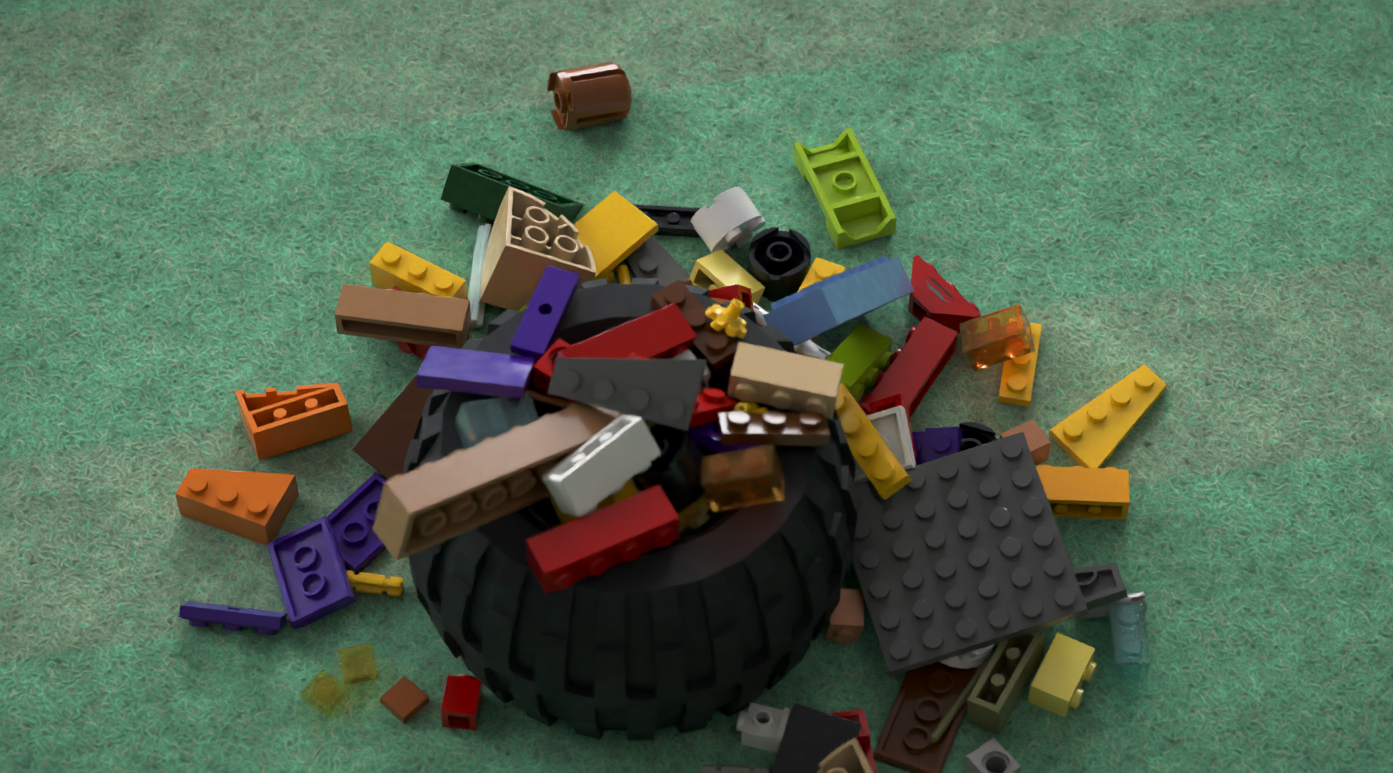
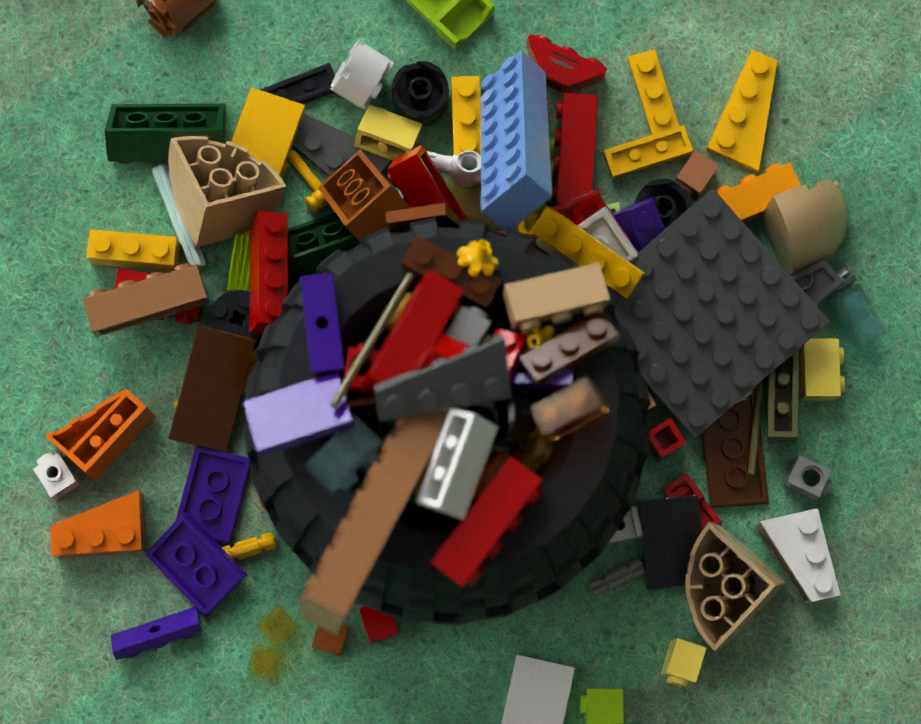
camera: 30 degrees left, 25 degrees up
(224, 433) = (63, 482): none -> white brick
(531, 361) = (372, 340): none -> olive axle
(855, 664) = (665, 440): none -> red brick
(983, 407) = (647, 152): none -> yellow plate
(996, 337) = (630, 84): clear orange brick -> none
(1120, 524) = (806, 224): none -> tan brick

